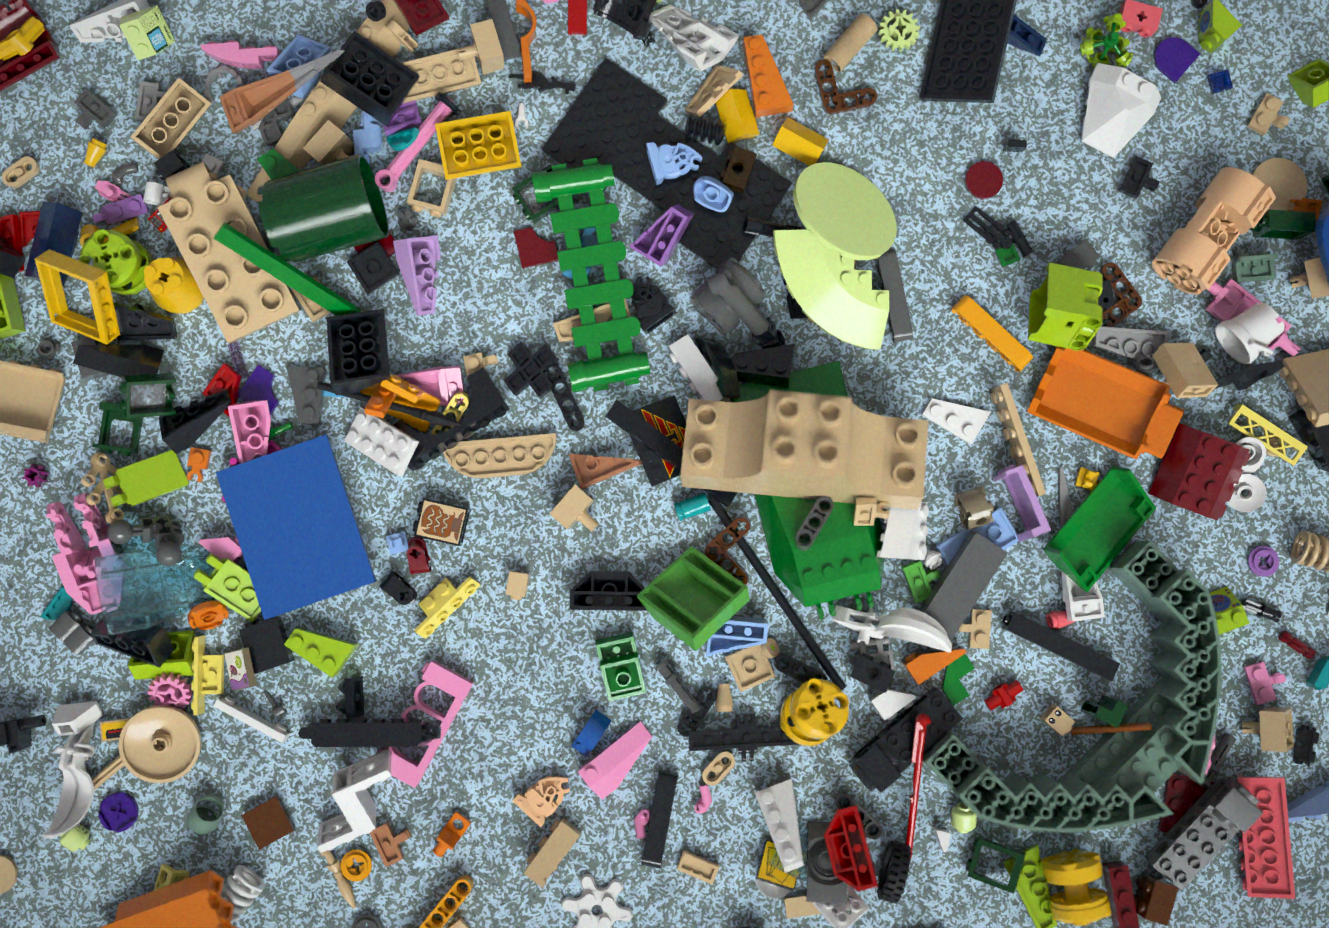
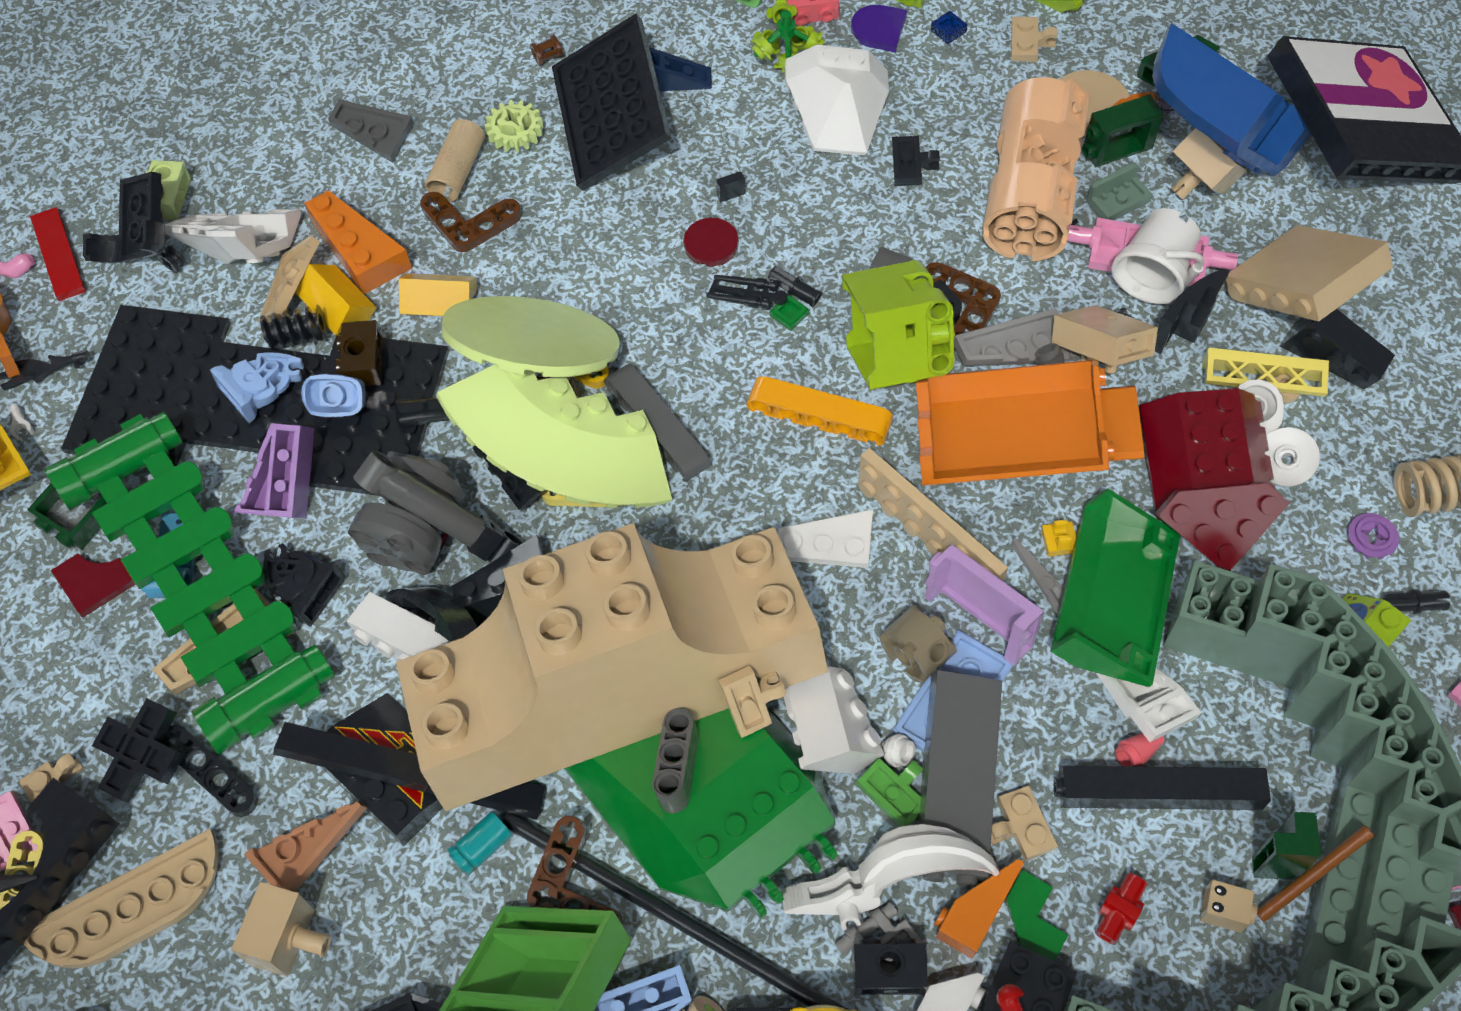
camera: 20 degrees left, 25 degrees down
(1183, 517) = (1223, 518): none -> plate

